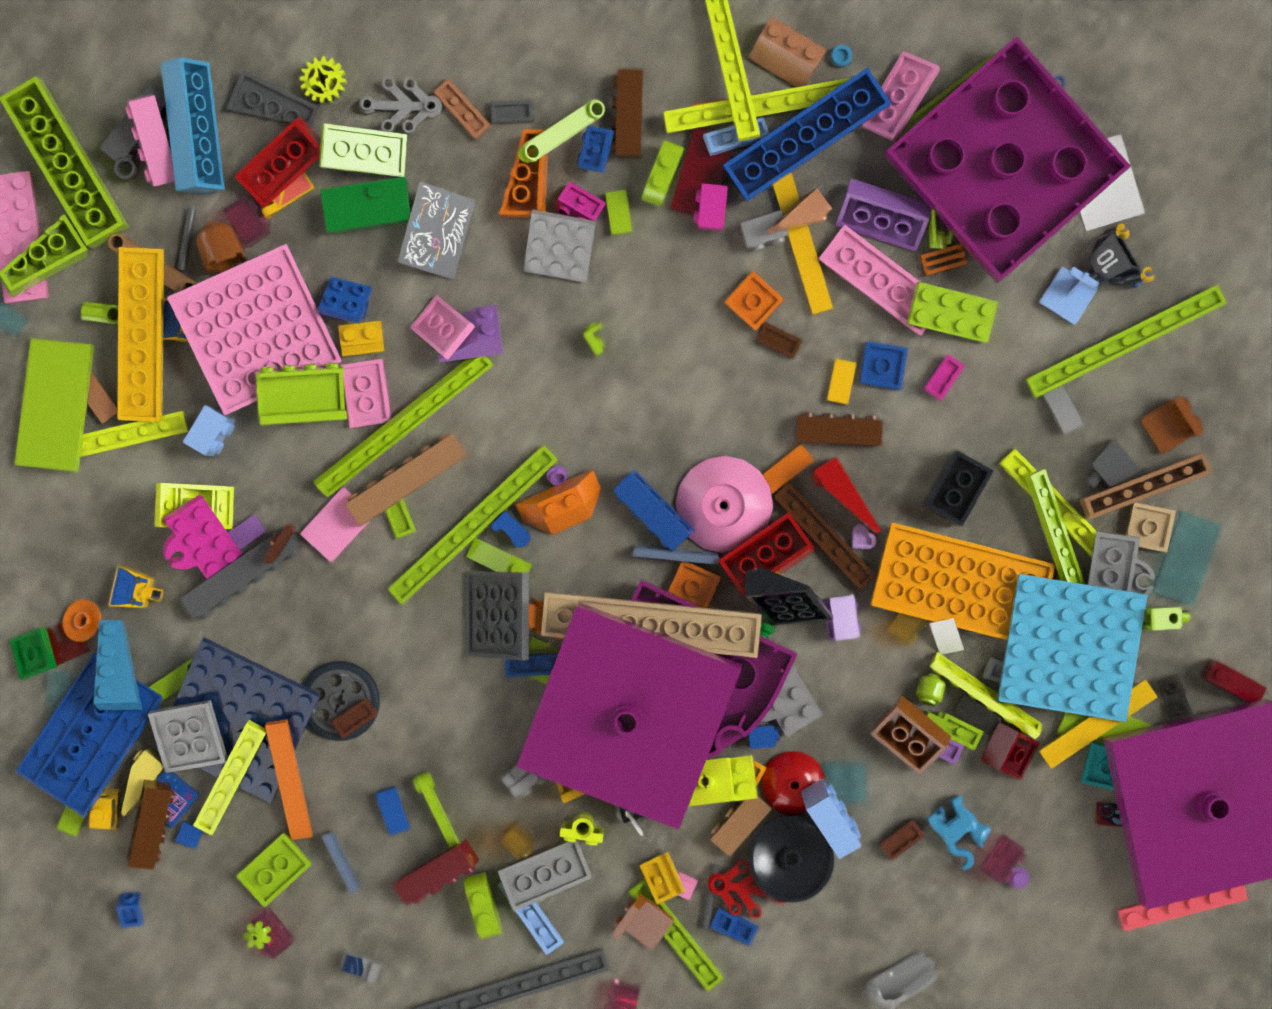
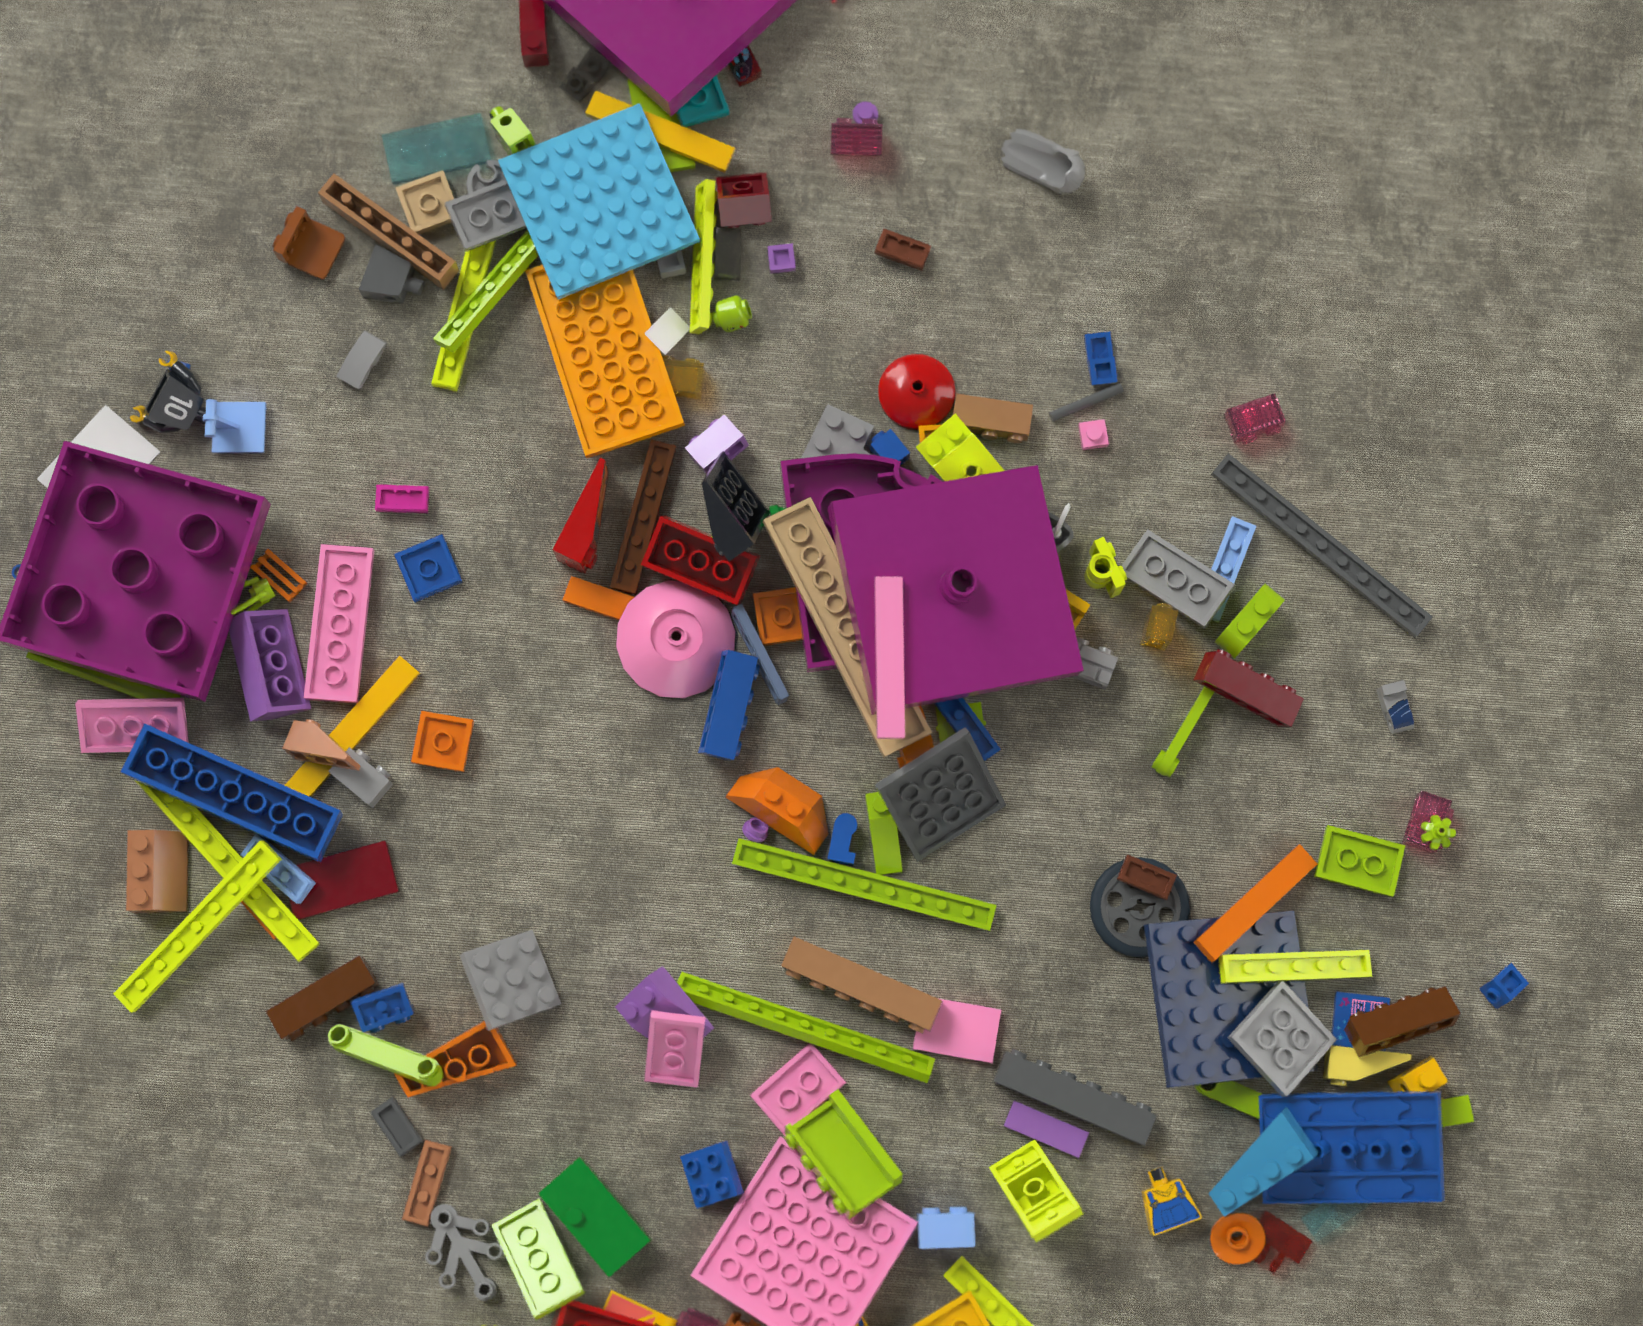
camera: 120 degrees left, 10 degrees down
(33, 653) = (1307, 1268): green plate -> none
(189, 835) = (1385, 975): blue tile -> none
(199, 539) = (1067, 1161): dark pink plate -> none
(279, 542) = (1015, 1074): copper plate -> none
(341, 861) = (1304, 796): sand blue tile -> none
(361, 338) = (742, 1131): yellow plate -> none
(392, 810) = (1216, 777): blue slope -> none
(400, 519) = (909, 964): lime tile -> none
(436, 230) = (575, 1123): sticker -> none
(578, 203) = (452, 990): dark pink bracket -> none
(595, 343) = (590, 879): lime bracket -> none
(606, 638) = (889, 658): none -> bright pink tile
(618, 212) = (435, 942): lime tile -> none
(643, 921) = (1157, 449): bracket -> none
(662, 173) = (365, 920): lime brick -> none
(662, 878) = (1100, 458): yellow plate -> none
(683, 943) = (1147, 411): lime tile -> none
(711, 207) = (370, 846): dark pink brick -> none
(742, 887) = (1055, 372): red plant -> none
(778, 340) = (468, 690): reddish brown tile -> none
(790, 859) = (994, 343): black dish -> none
(832, 818) = (925, 326): light blue brick -> none
(838, 430) = (525, 570): reddish brown brick -> none
(841, 56) = (125, 814): dark azure tile -> none
(841, 381) = (471, 600): yellow tile -> none
(848, 779) = (881, 339): clear light blue plate -> none
(862, 538) = (620, 478): lavender tile -> none
(911, 735) = (790, 303): dark orange brick -> none
(952, 312) = (328, 531): lime plate -> none
(956, 827) = (854, 203): dark azure animal -> none
(957, 488) = (508, 413): black brick -> none
(958, 729) = (756, 266): lime hinge -> none
(1126, 341) = (251, 341): lime plate -> none

